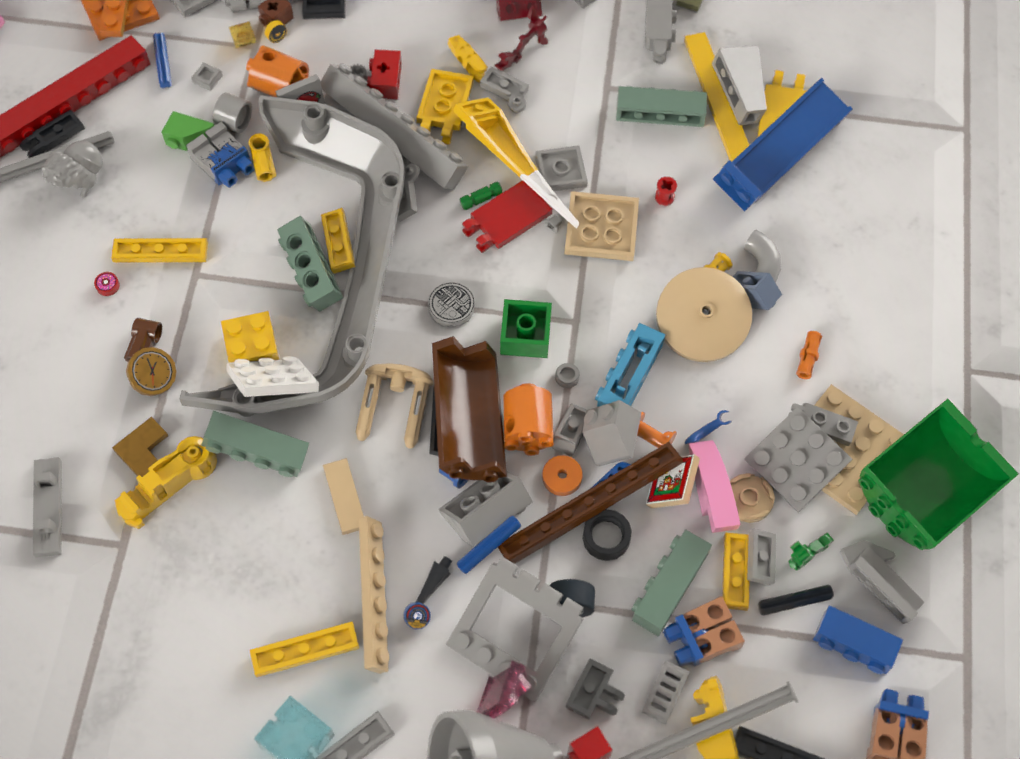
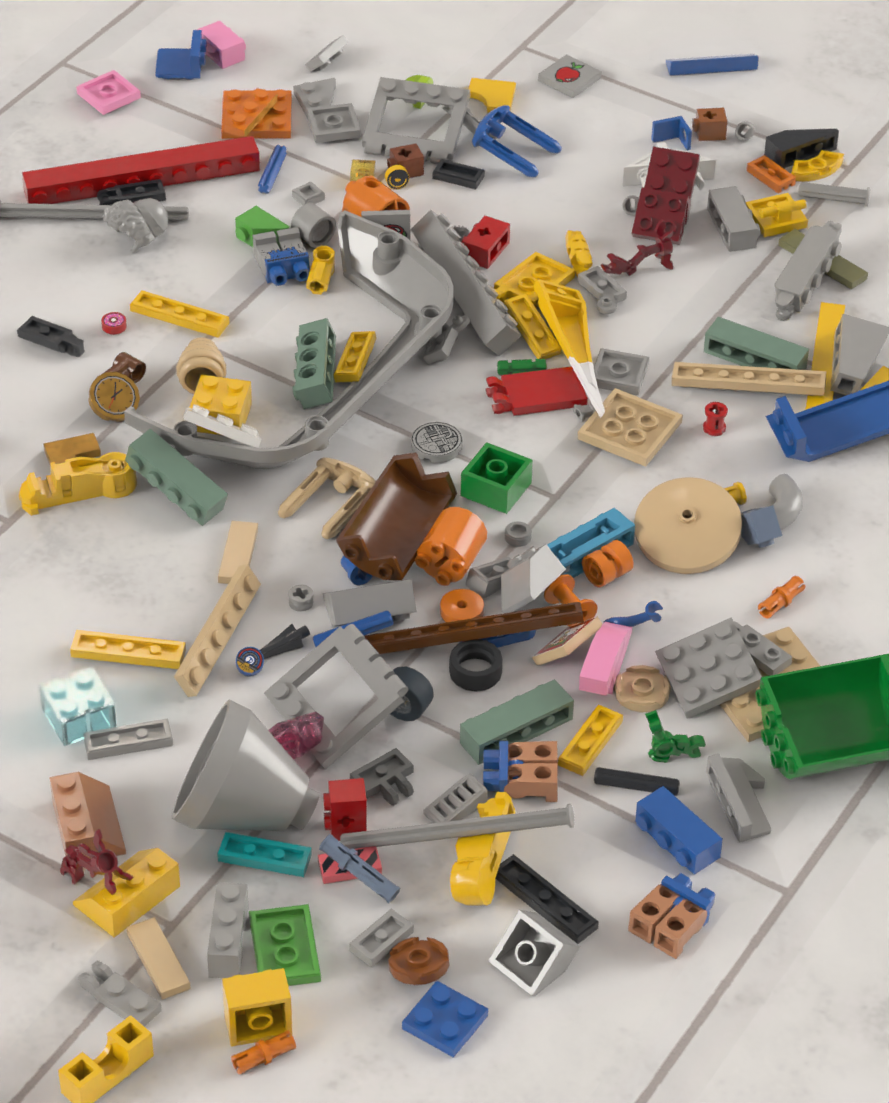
camera: 25 degrees right, 20 degrees down
(57, 322) = (51, 336): none -> black hinge
(212, 305) = (199, 359): none -> tan piece
(423, 531) = (296, 602): none -> light grey bush
(471, 151) = (532, 327): none -> yellow tile
(660, 381) = (607, 563): none -> orange wheel
(671, 139) = (749, 378): none -> tan plate
(761, 557) = (622, 733): light grey plate -> none

